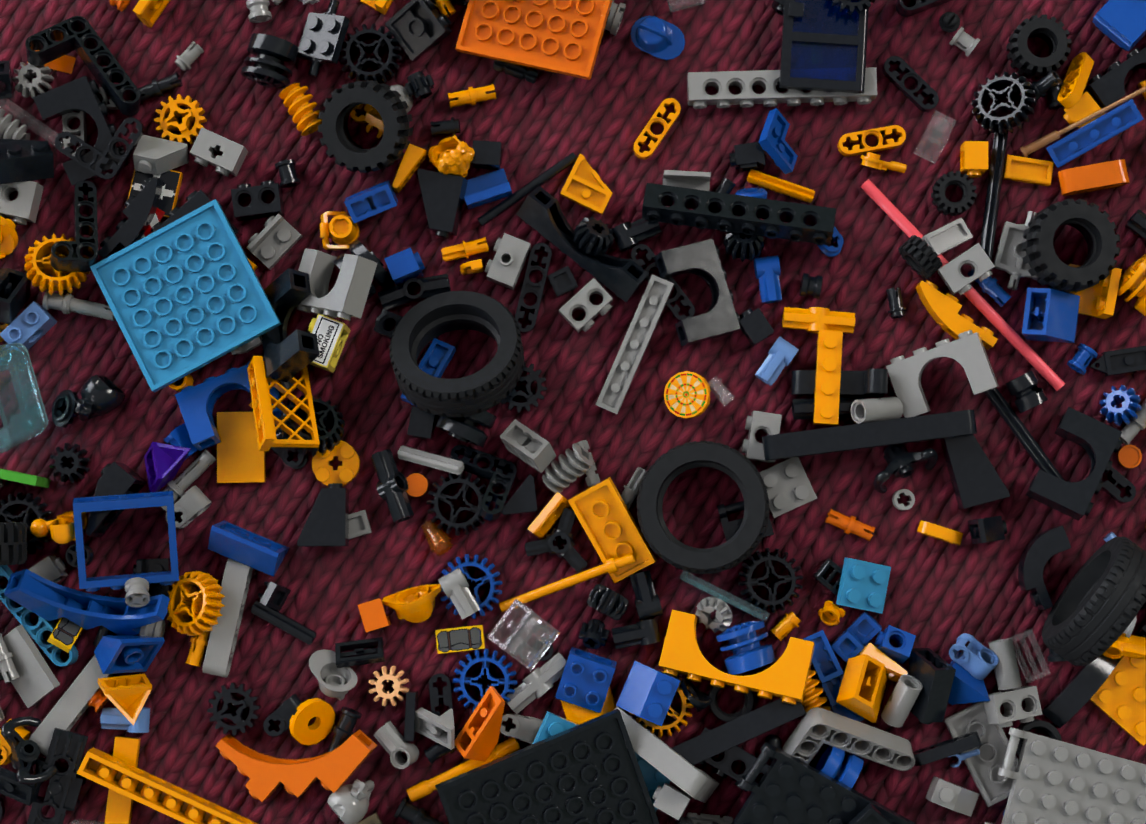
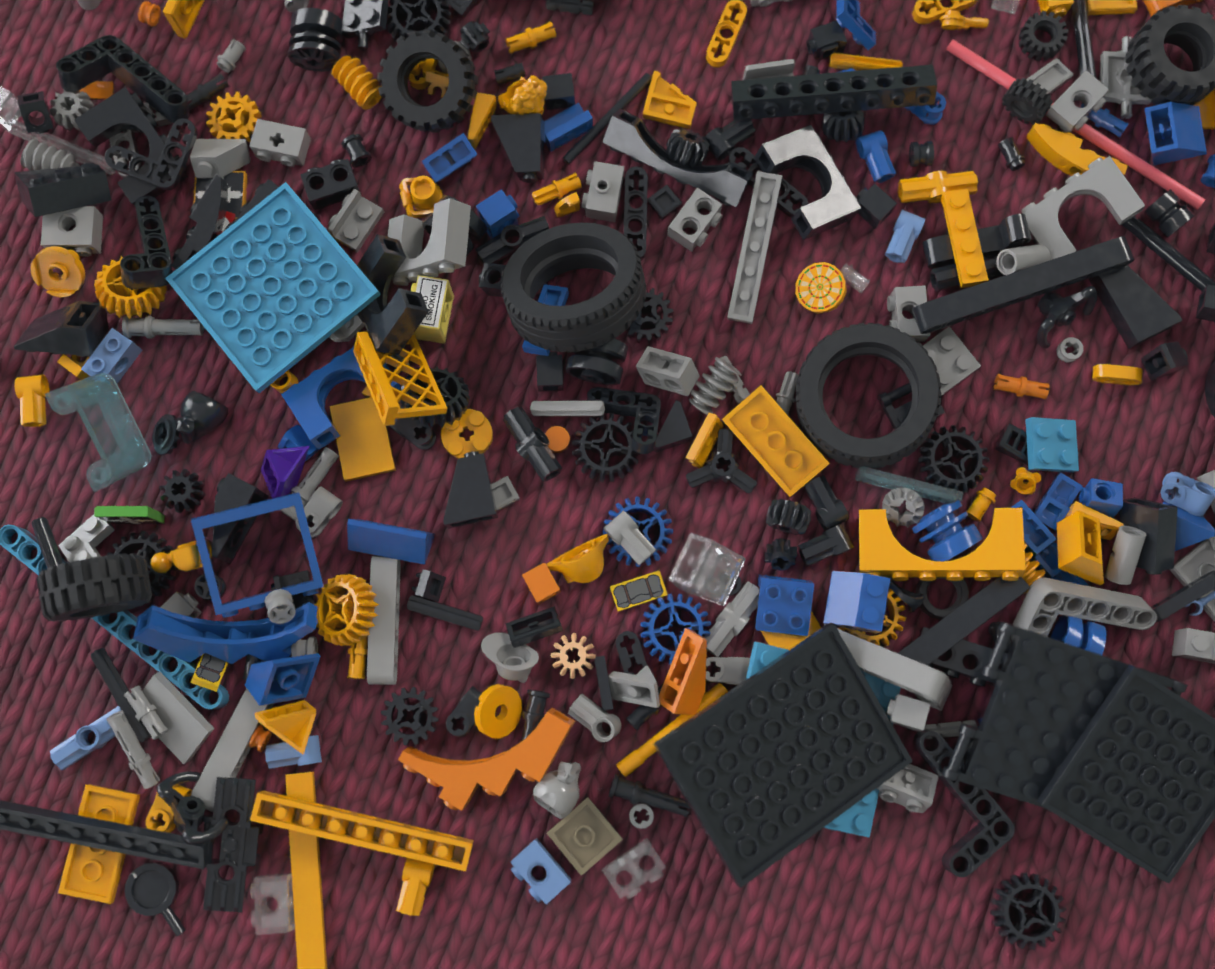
camera: 15 degrees left, 5 degrees down
(437, 539) = (592, 490): clear orange cone -> none
(609, 566) = (782, 477): light orange bar -> none

